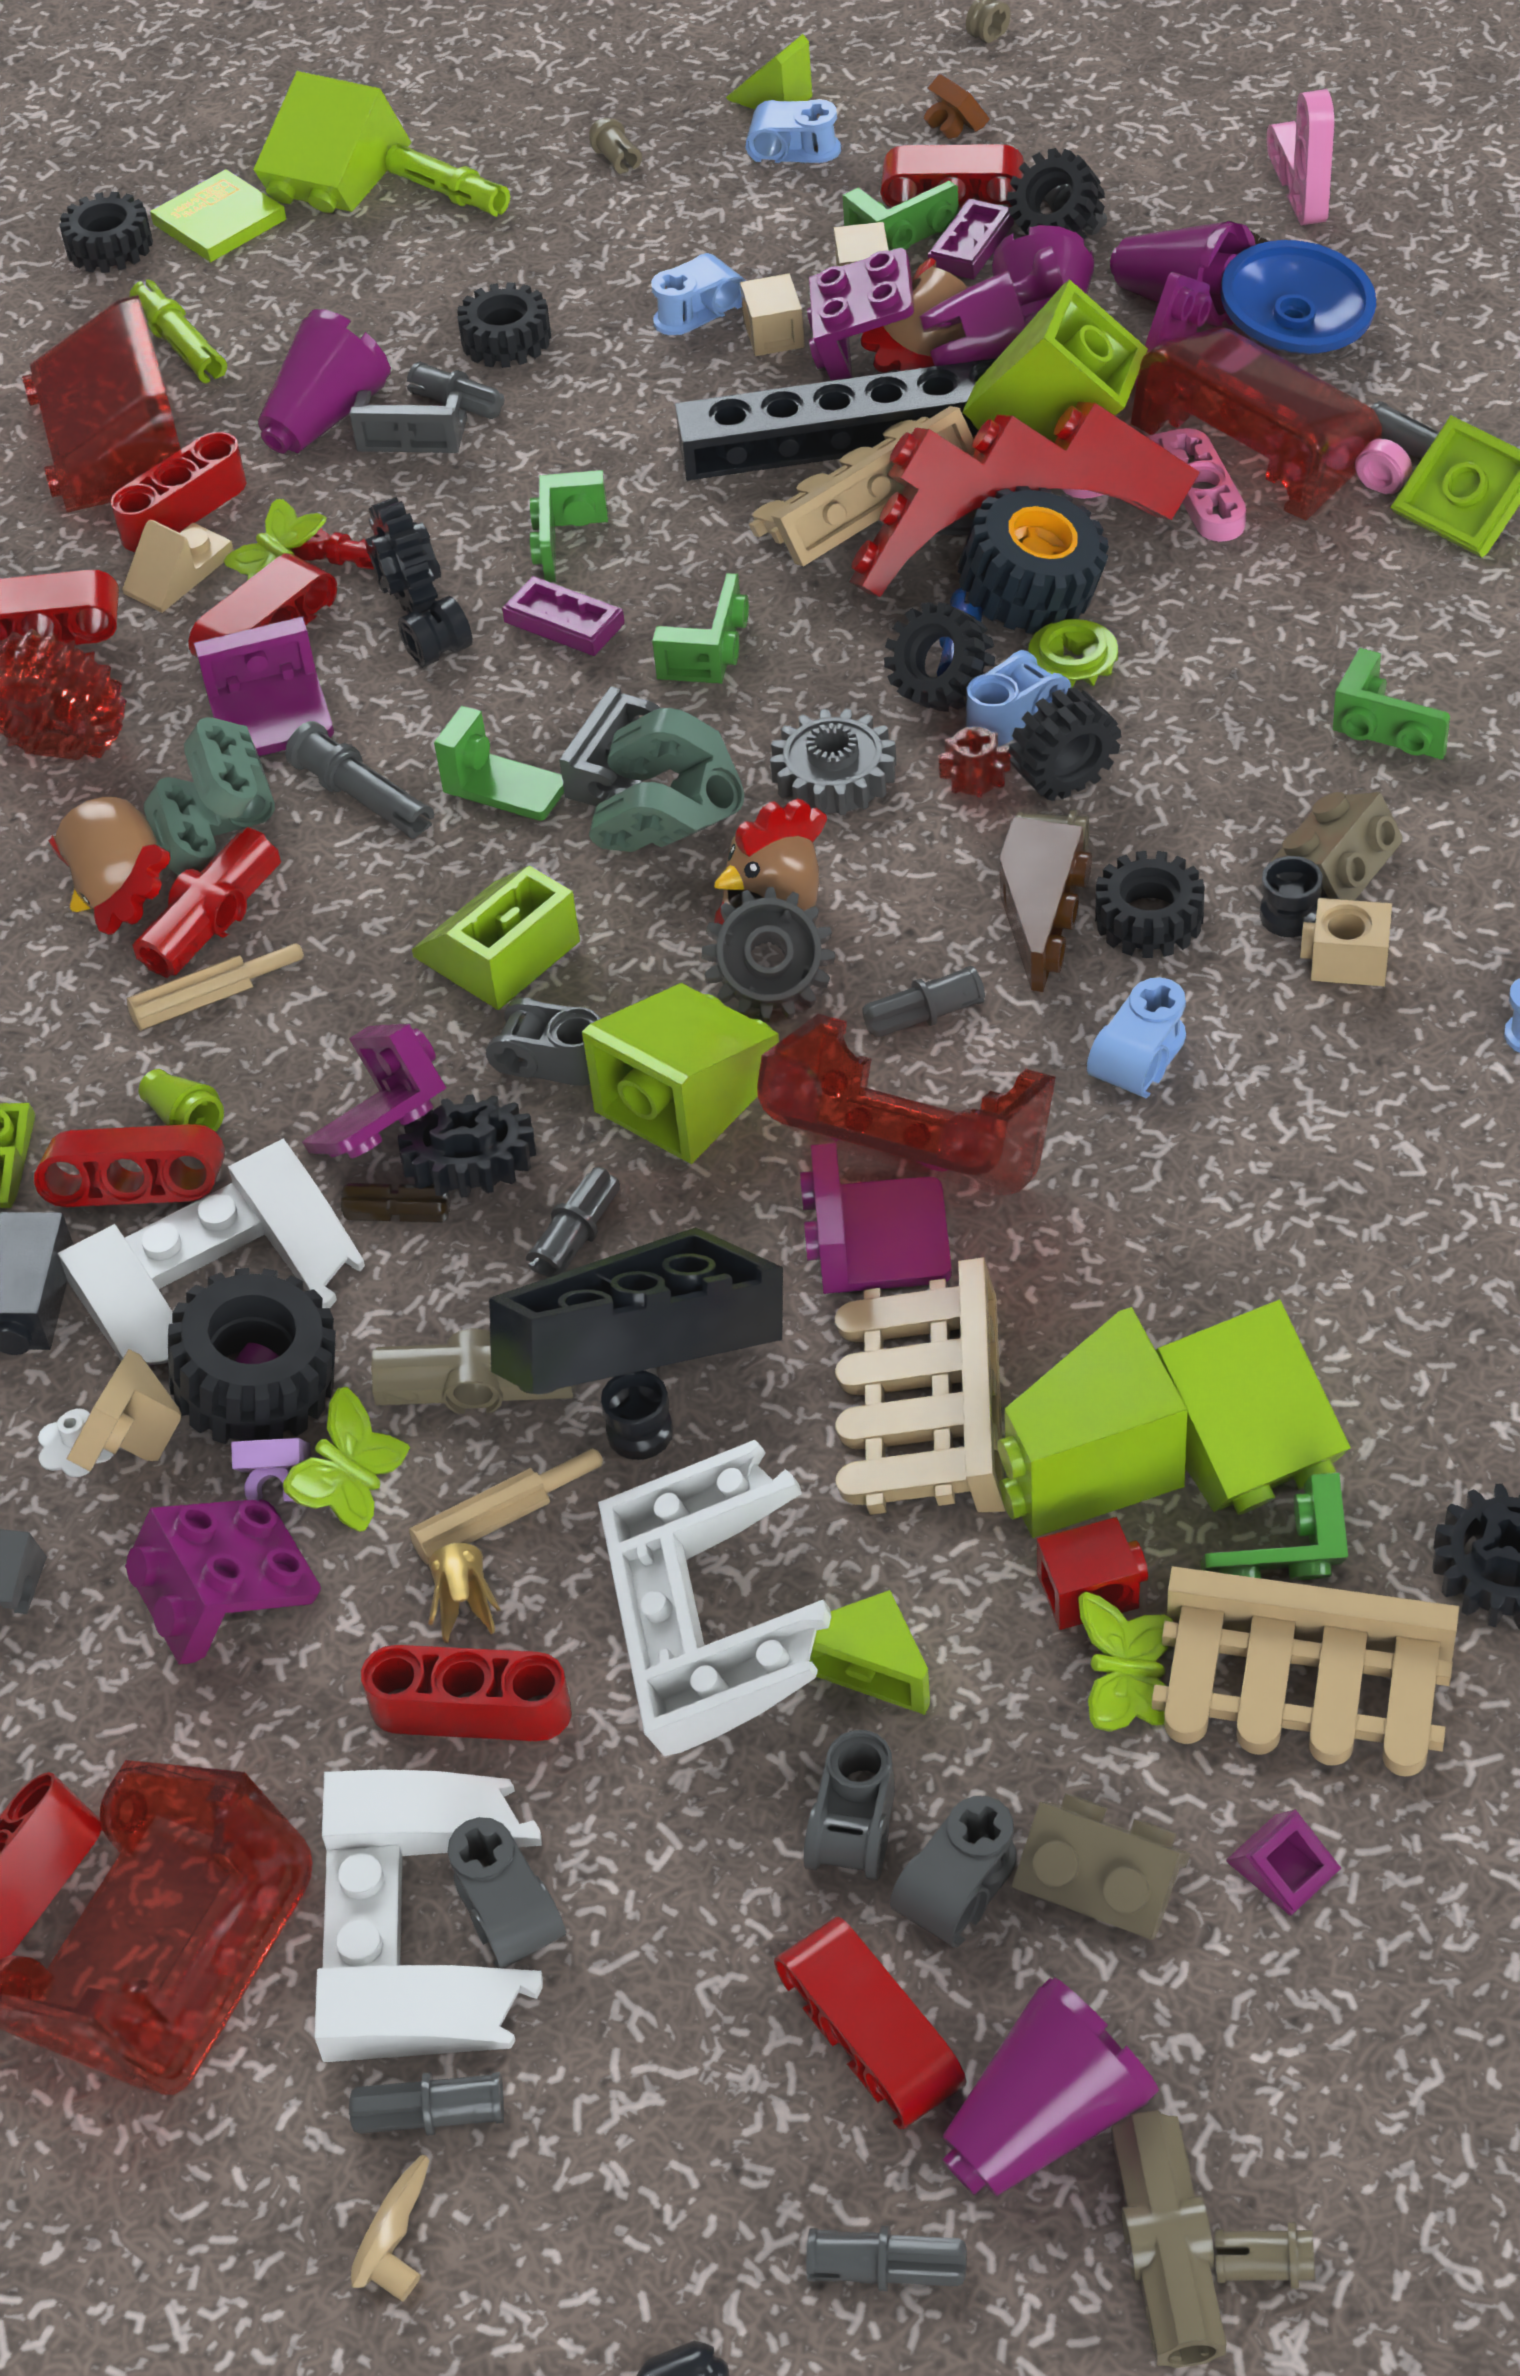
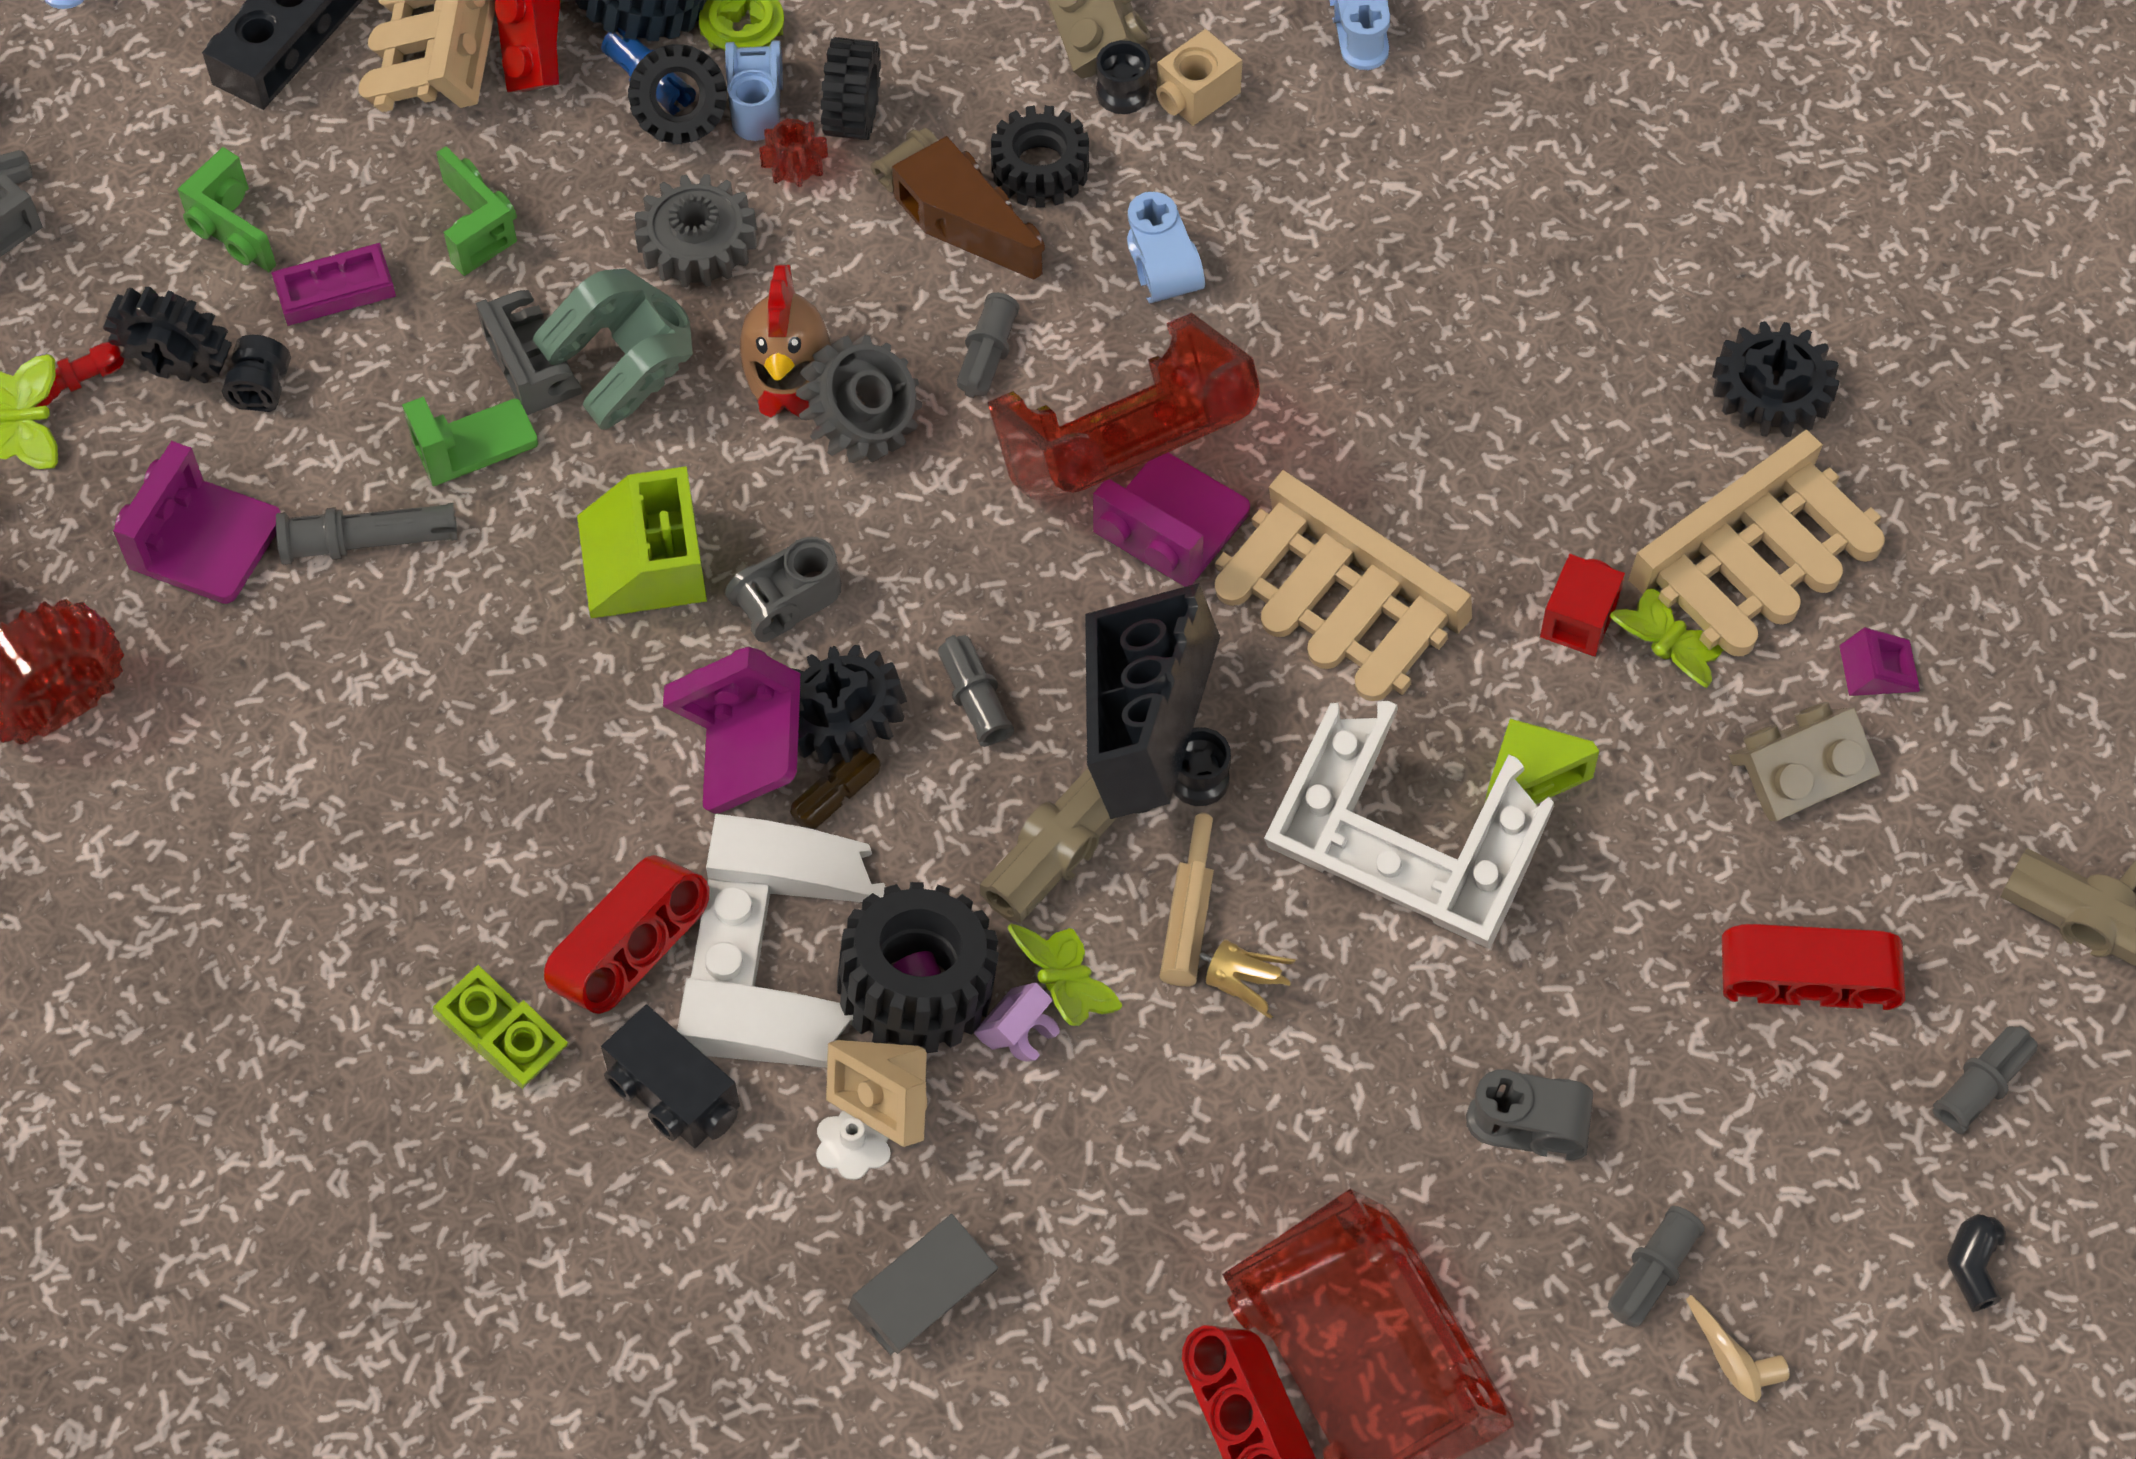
camera: 55 degrees left, 10 degrees up
(110, 860) = (285, 746): medium nougat piece -> none
(181, 1100) = (587, 863): lime cone -> none
(205, 987) = (472, 773): tan axle -> none
(206, 903) = (387, 713): red piece -> none
(215, 1561) = (1083, 1122): magenta bracket -> none
(225, 794) = (282, 625): sand green piece -> none
(275, 594) = (91, 470): beam -> none
(363, 1994) = (1539, 1256): white wedge -> none
(441, 1674) = (1355, 1003): red beam -> none
(676, 1068) = (912, 525): lime slope -> none
(851, 1817) = (1654, 873): dark grey piece -> none
(956, 1879) = (1748, 837): dark grey piece -> none
(1044, 2093) = (1957, 902): magenta cone -> none
(1094, 1432) = (1489, 508): lime slope -> none
(1252, 1409) = (1535, 426): lime slope -> none
(1317, 1515) = (1677, 460): bright green bracket -> none

